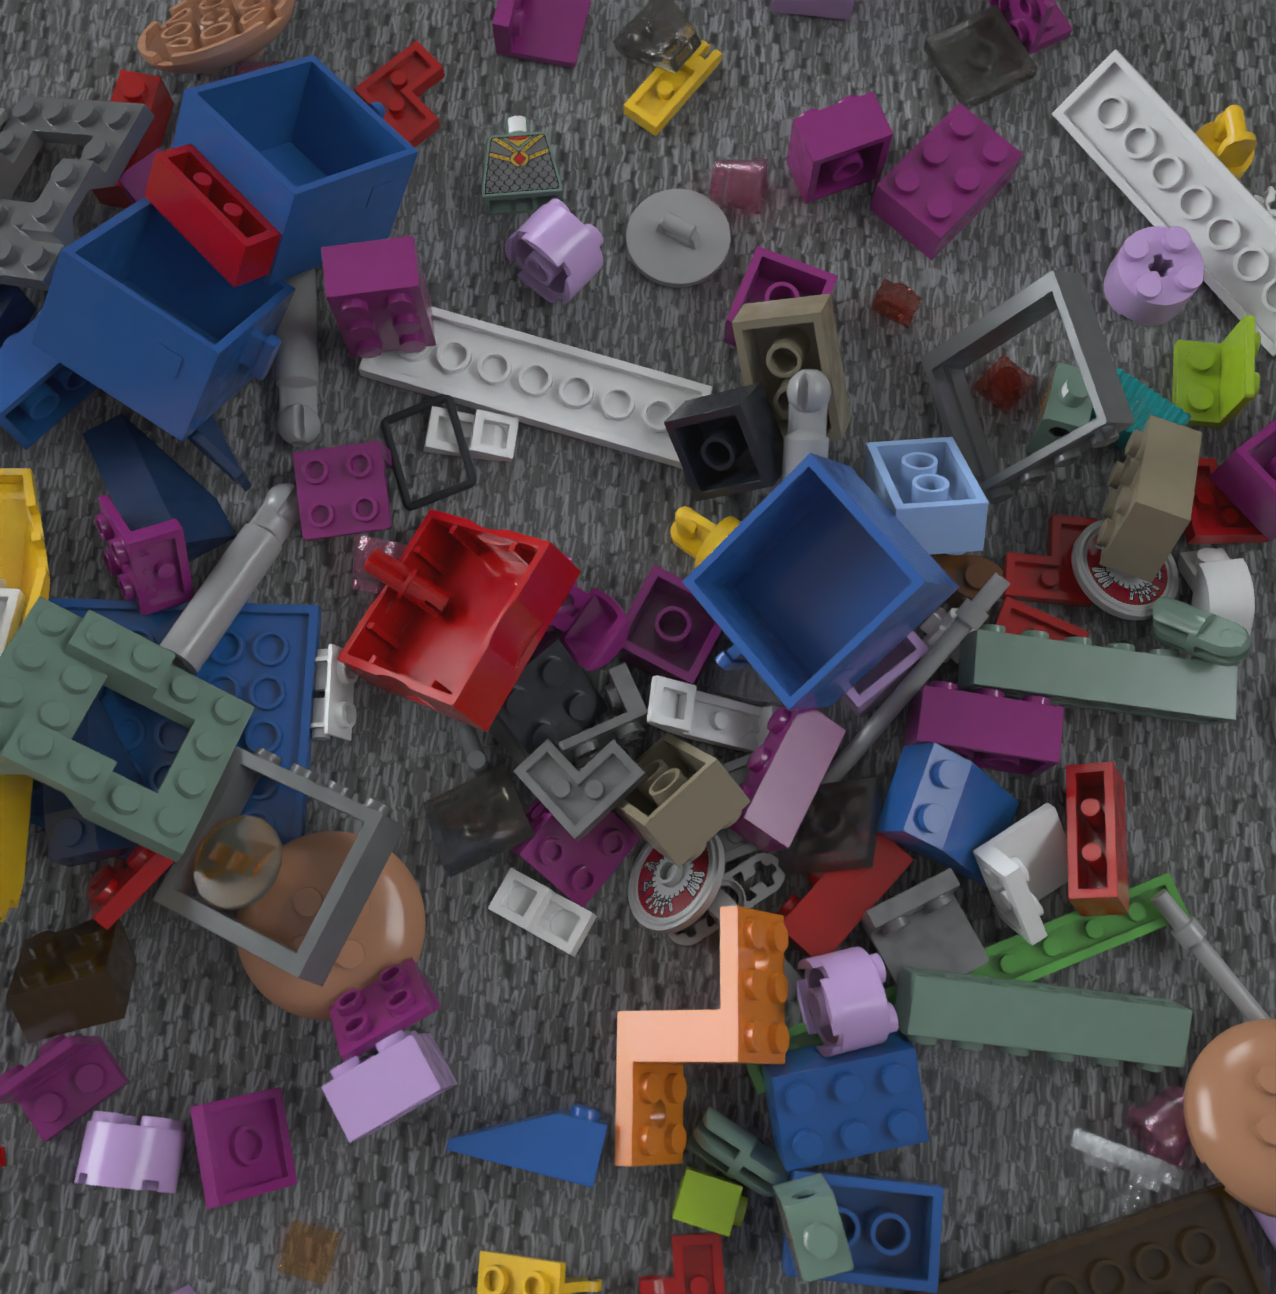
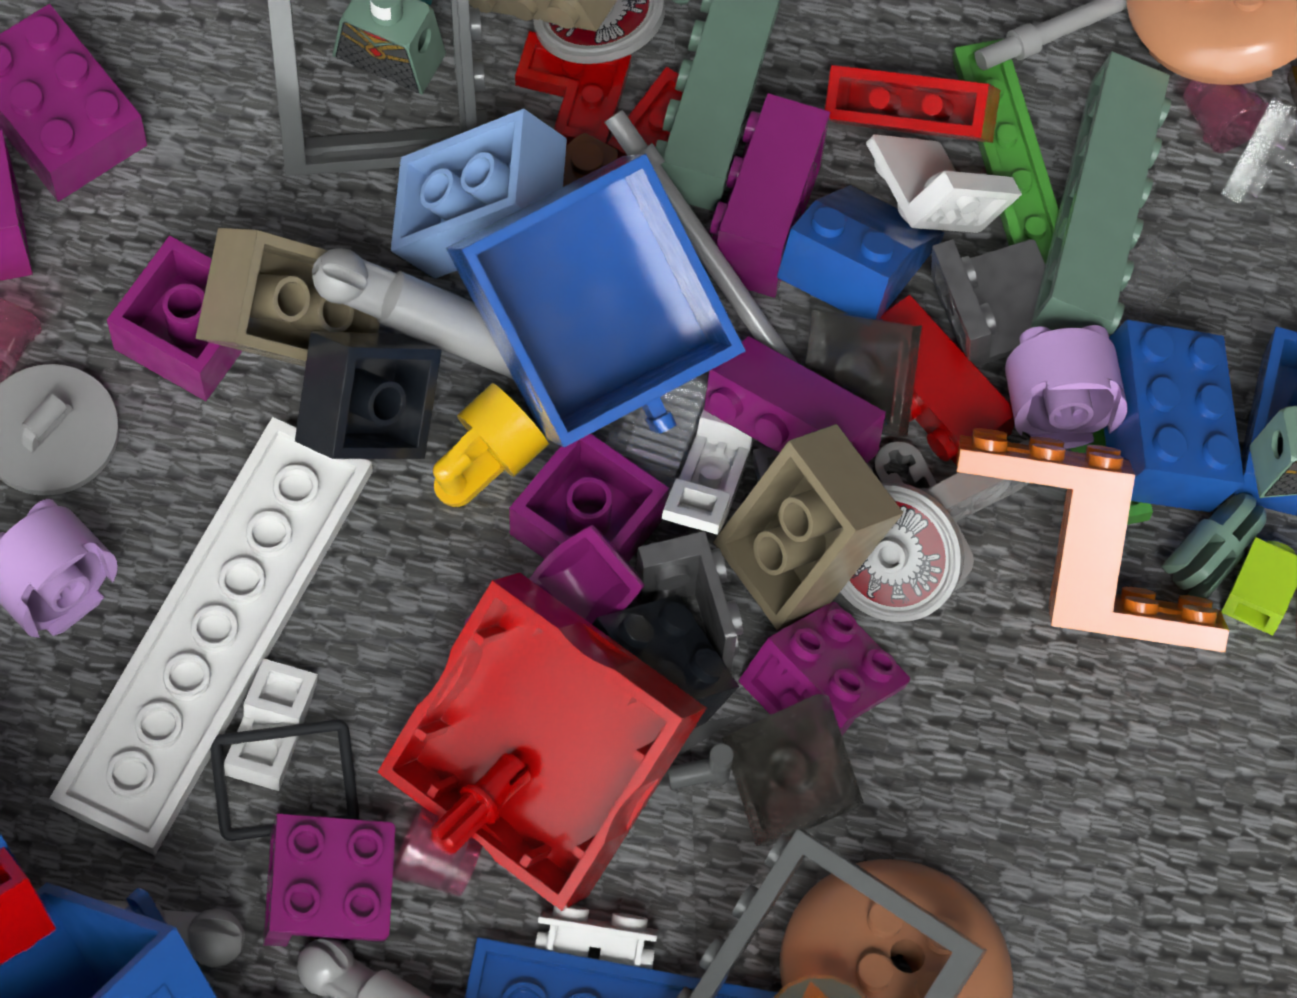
camera: 85 degrees left, 10 degrees down
(379, 296) = (91, 768): magenta brick -> none
(382, 1008) = (1019, 901): magenta bracket -> none
(386, 1086) = (1107, 893): lavender brick -> none
(542, 912) = (910, 723): white slope -> none
(551, 1143) = (1187, 727): blue slope -> none
(582, 796) = (792, 631): flat silver plate -> none
(896, 302) = (204, 188): clear red plate -> none
(1004, 384) = (334, 96): clear red plate -> none

